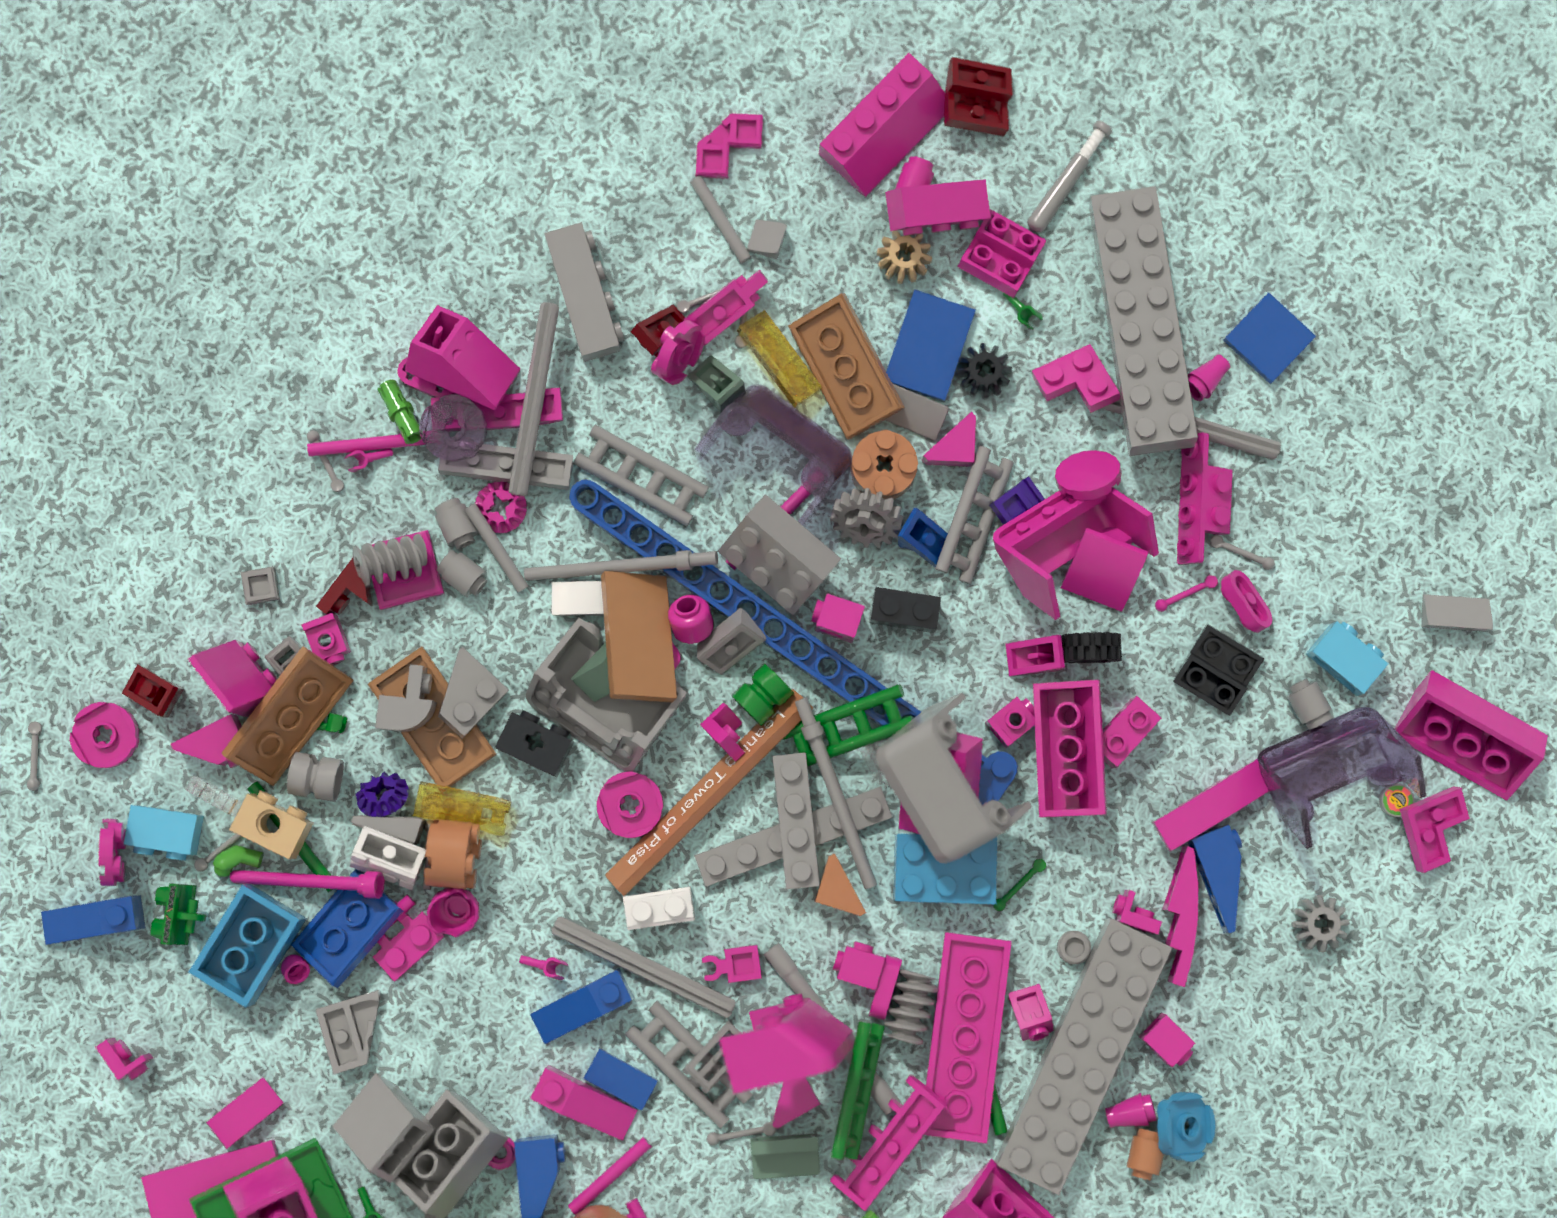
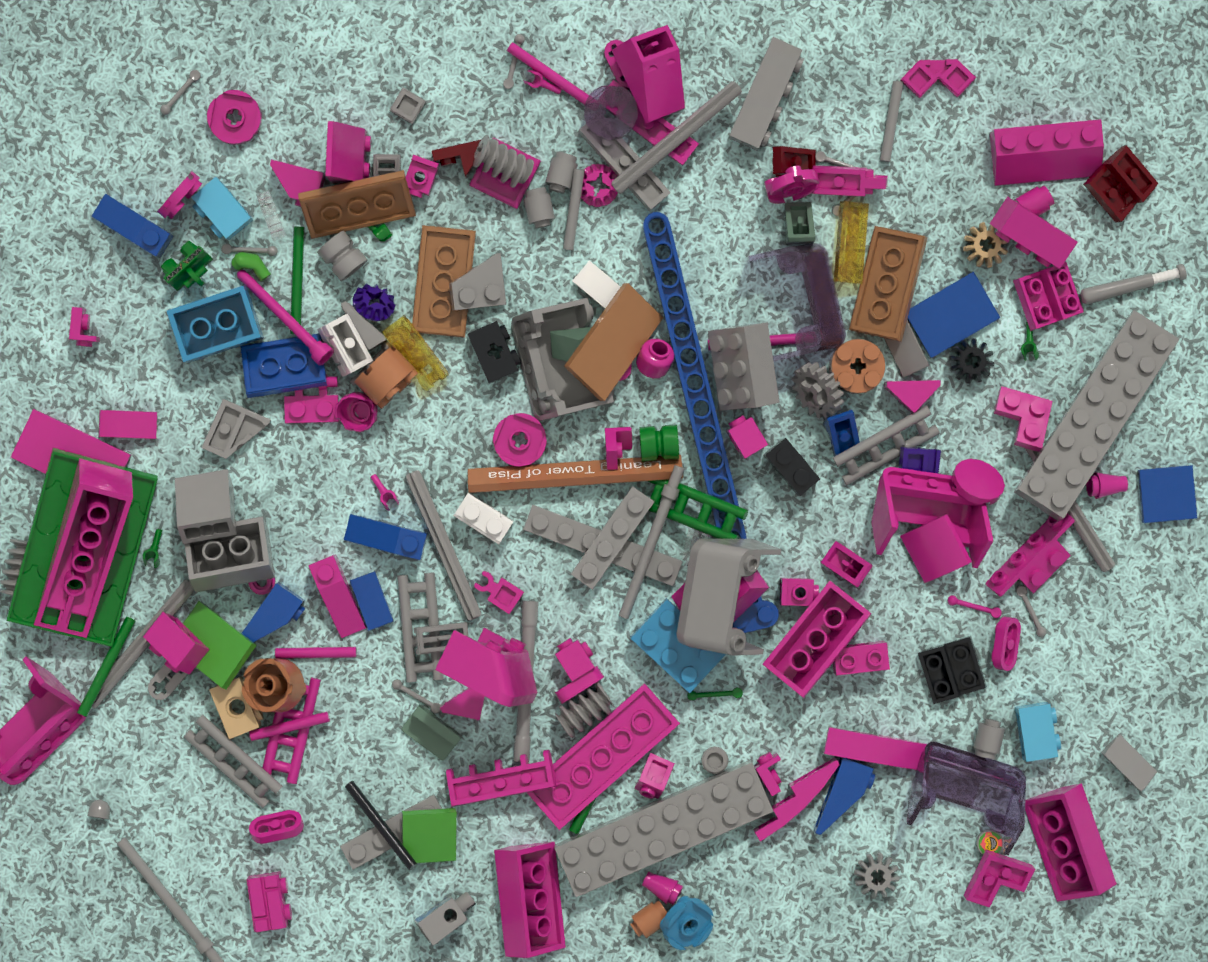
camera: 40 degrees right, 5 degrees up
(152, 691) = (286, 115): dark red slope -> none
(252, 825) = (280, 251): tan brick -> none
(295, 969) = (231, 363): dark pink hinge -> none
(400, 411) = (587, 71): bright green pin -> none
(411, 712) = (436, 267): light grey brick -> none
(661, 472) = (717, 248): light grey bar -> none
(682, 561) = (681, 318): light grey bar -> none
(730, 642) = (667, 393): light grey slope -> none
(767, 238) = (910, 159): light grey slope -> none
(837, 890) = (601, 600): nougat slope -> none
(857, 1091) = (509, 731): green bar -> none
(1092, 647) = (885, 589): black tyre -> none
(1168, 1041) = (722, 864): dark pink brick -> none

